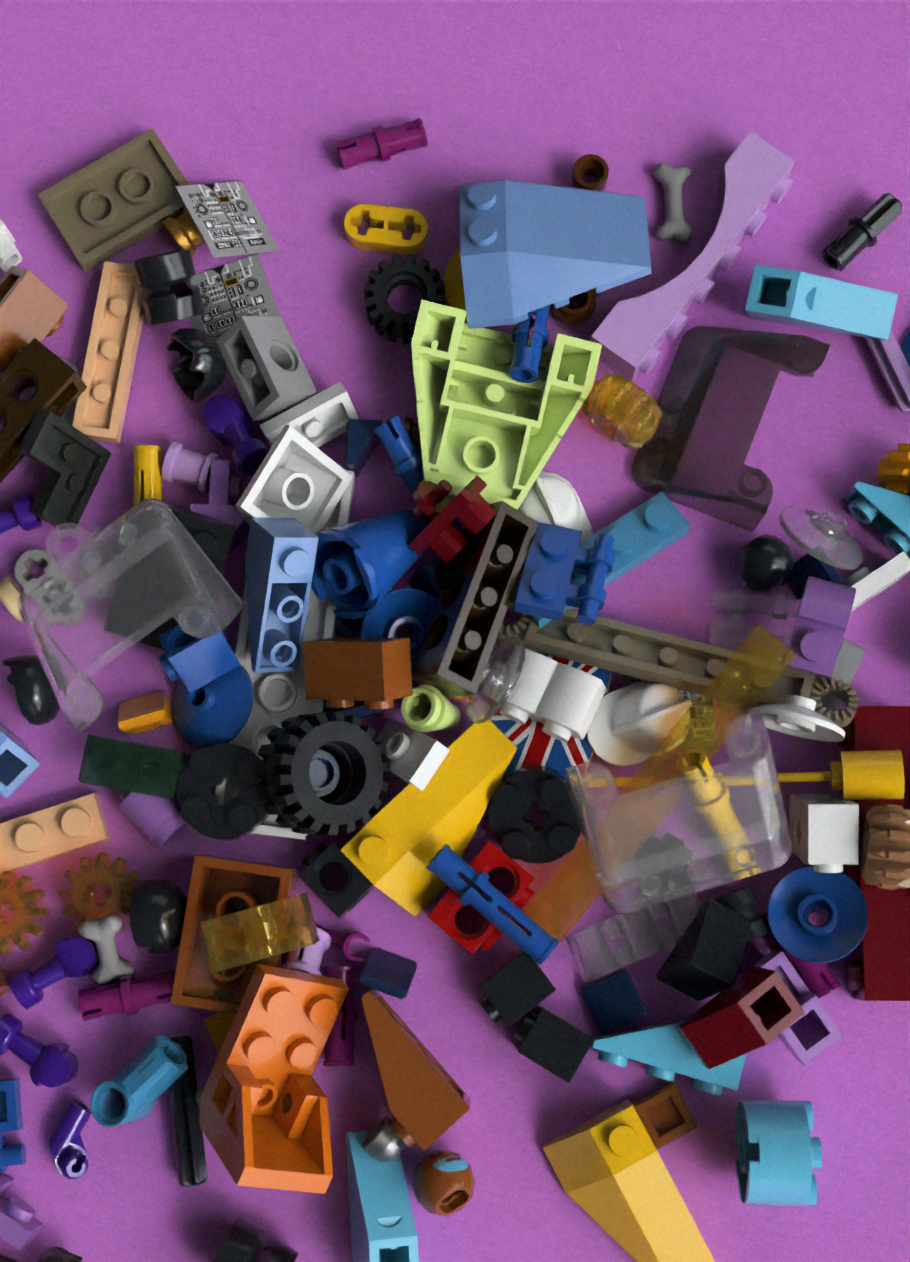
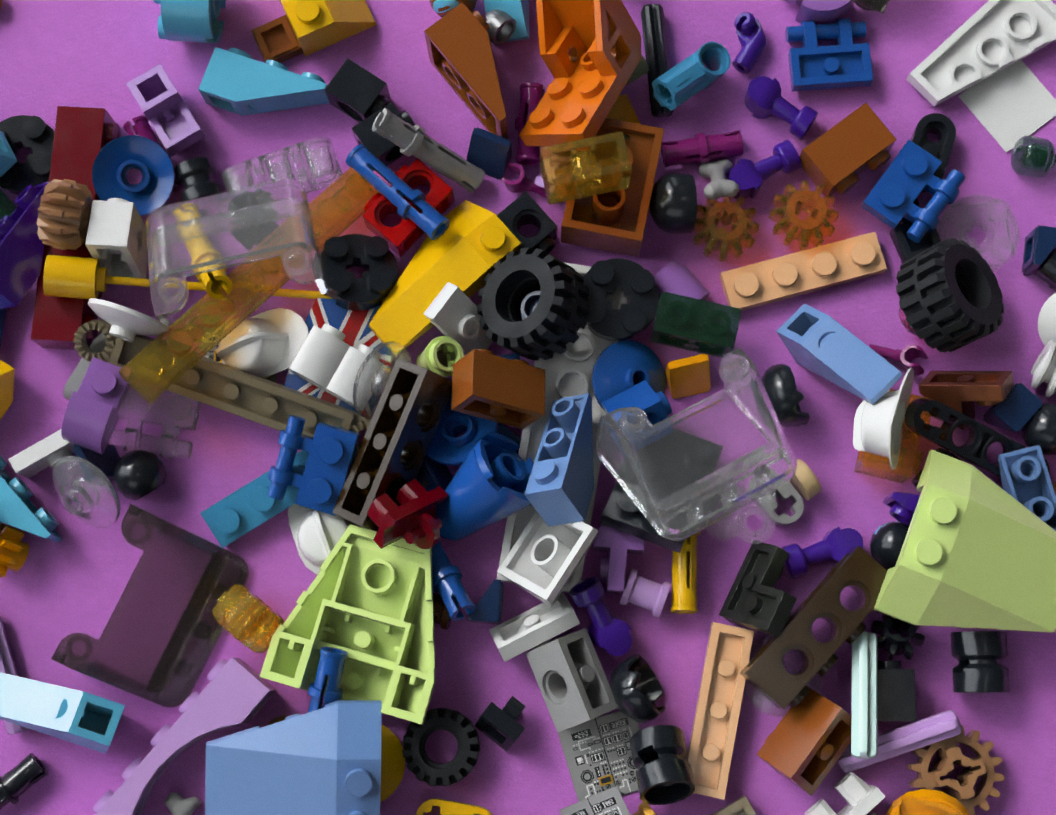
camera: 175 degrees left, 0 degrees up
(340, 326) = (502, 724): none -> black tile
(474, 969) = (415, 142): none -> light grey pin
(614, 1001) = (307, 122): dark blue slope -> none
(707, 953) = (224, 148): black slope -> none
(741, 1017) = (202, 91): dark red slope -> none

